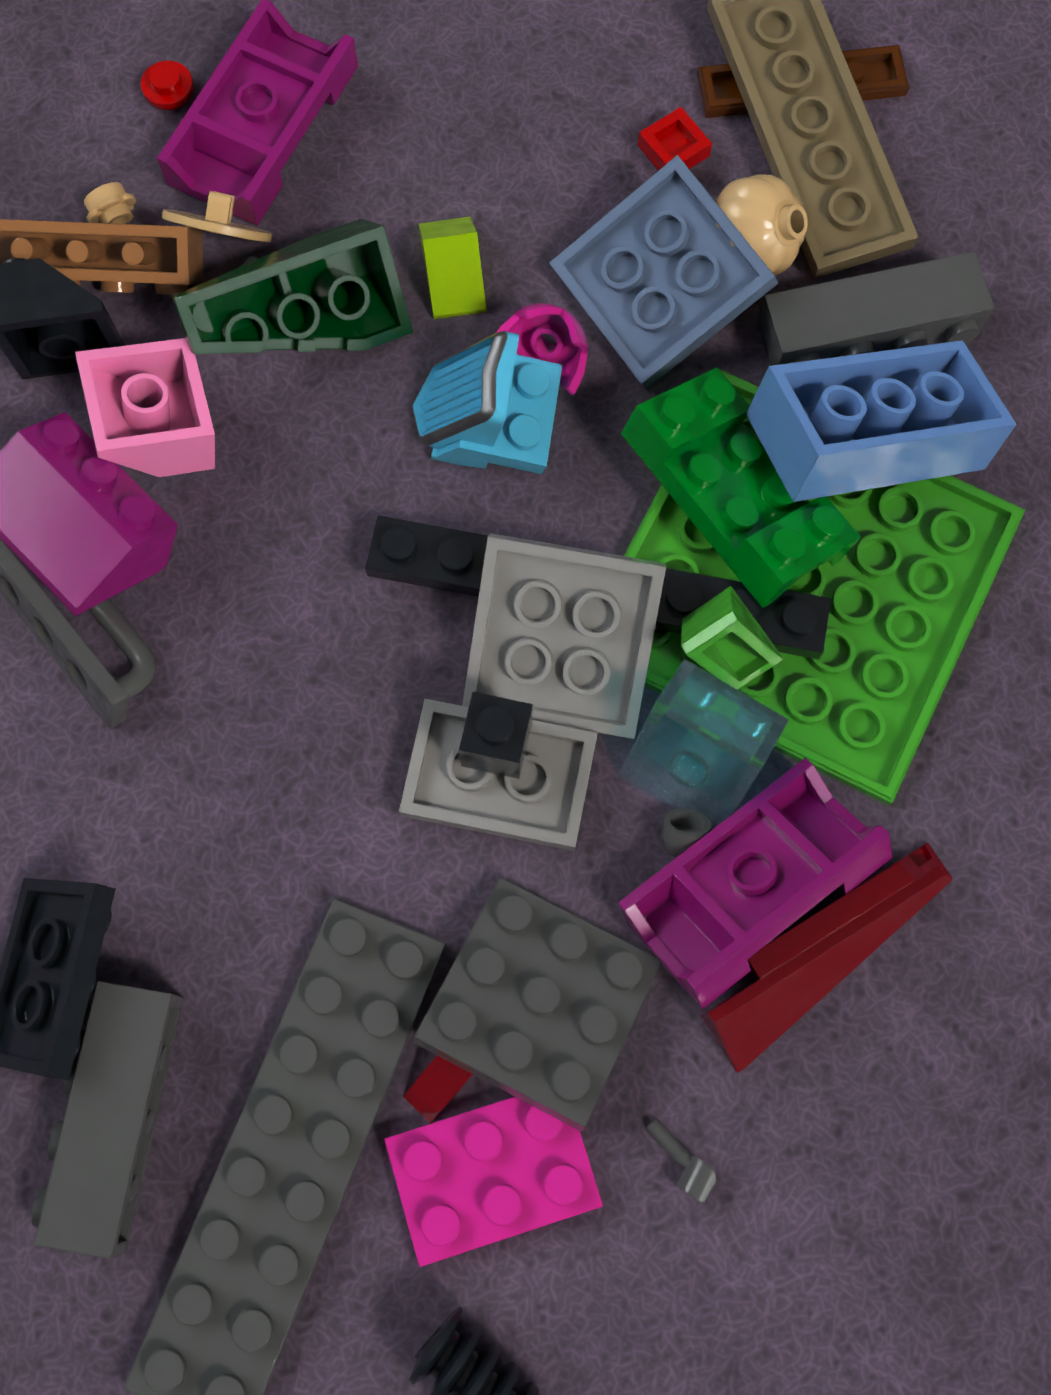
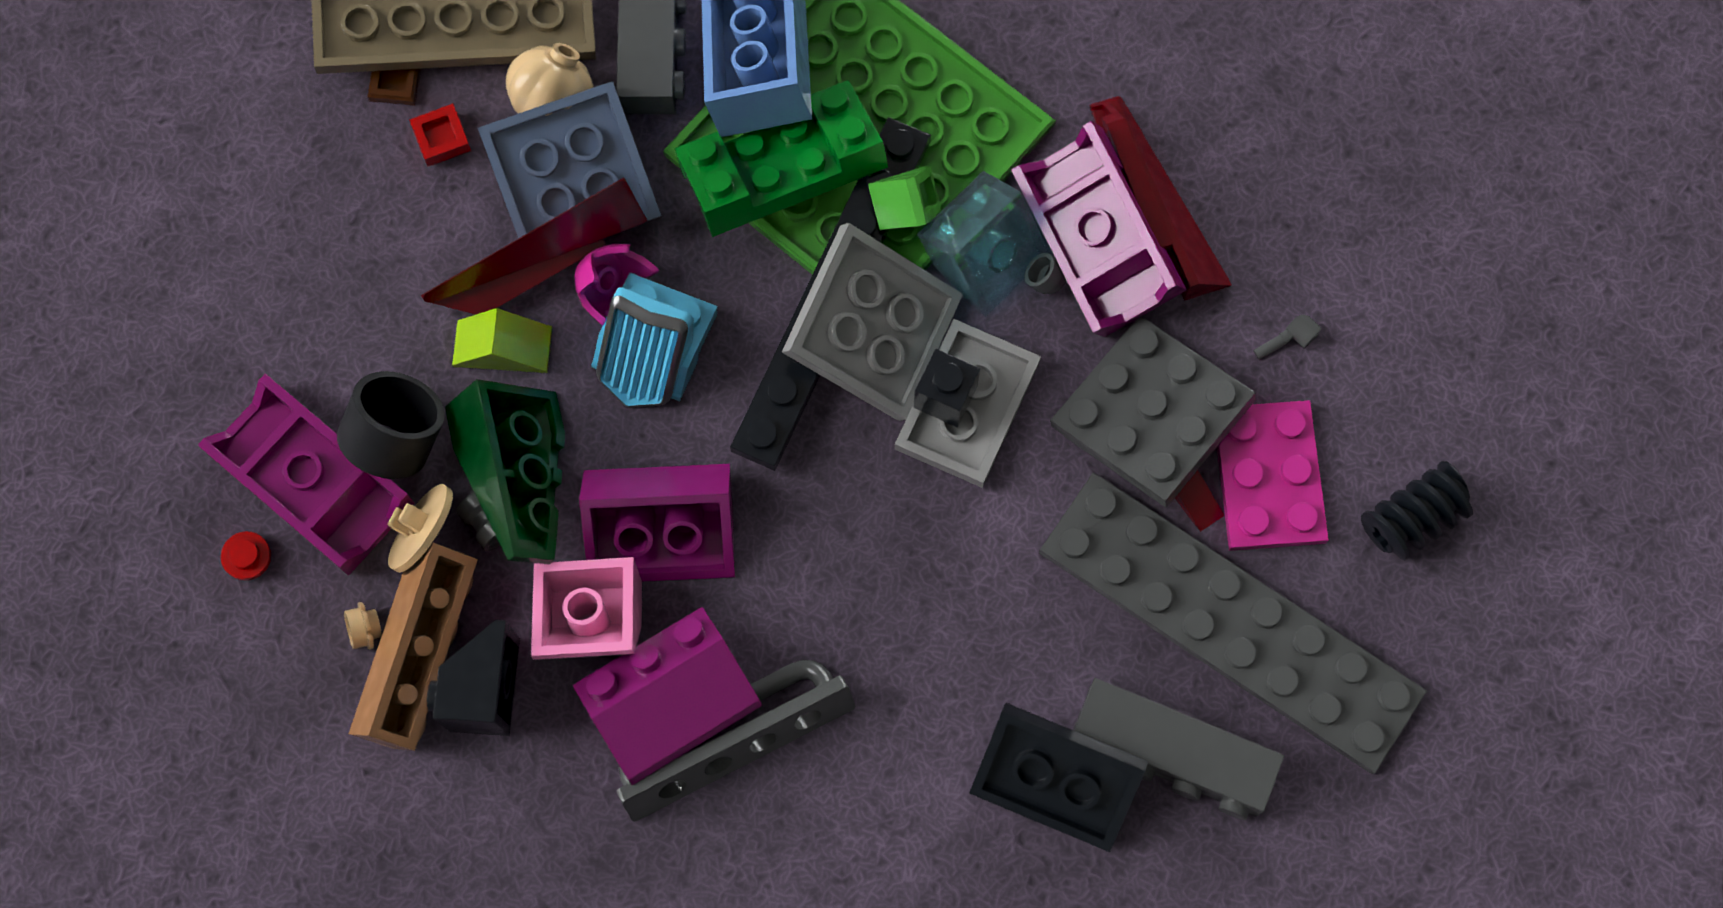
camera: 75 degrees left, 0 degrees up
(280, 464) = (663, 517): none -> magenta slope
(351, 150) = (397, 403): none -> black piece
(560, 265) = (540, 252): none -> dark red wedge

